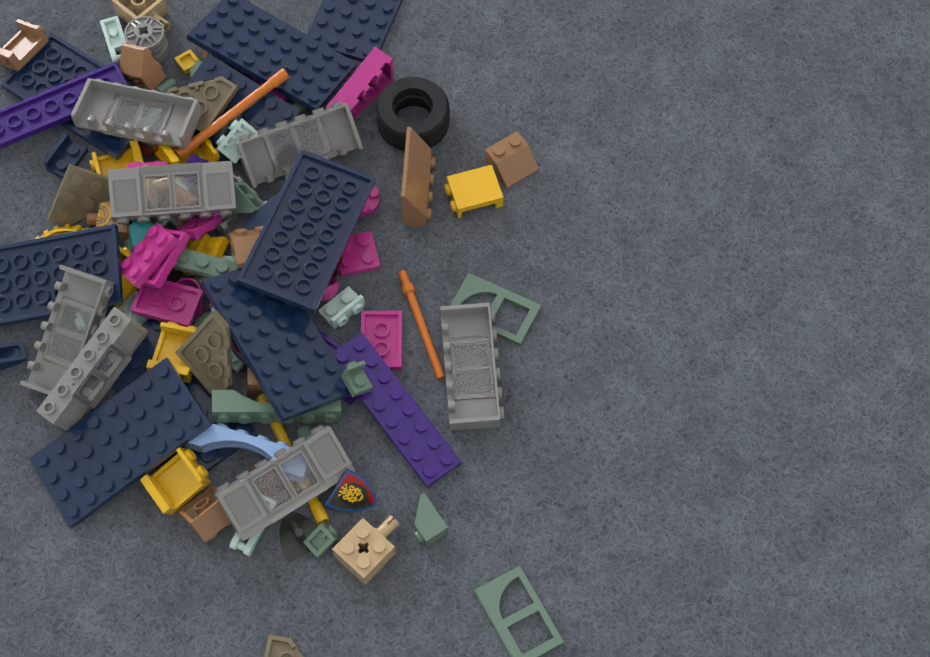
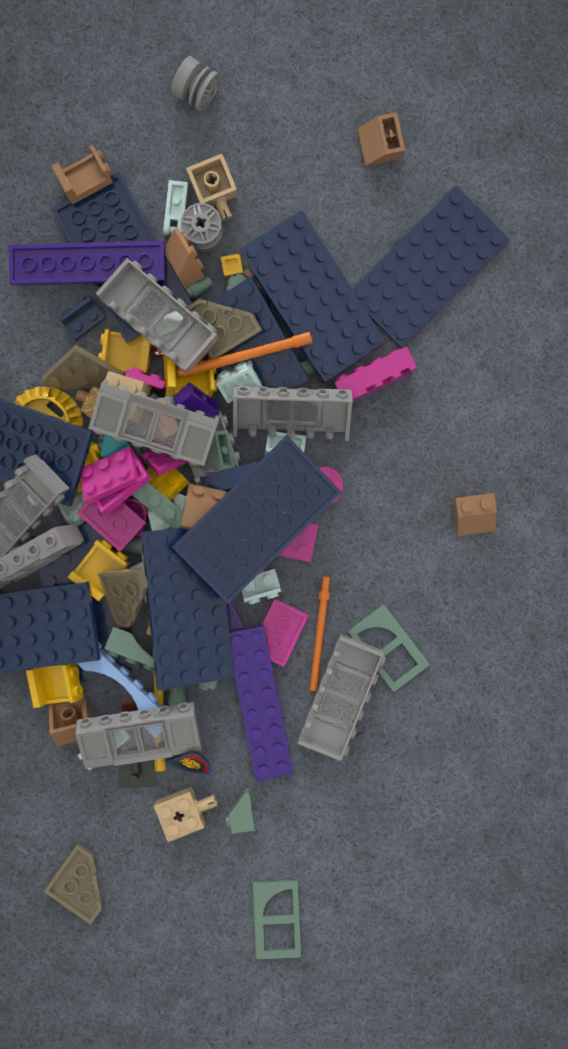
camera: 25 degrees right, 25 degrees up
(322, 539) = (152, 787): sand green bracket -> none
(356, 379) = (238, 672): sand green bracket -> none
(412, 92) = (428, 407): black tyre -> none
(417, 181) = (379, 500): medium nougat slope -> none
(473, 190) = (426, 529): yellow panel -> none

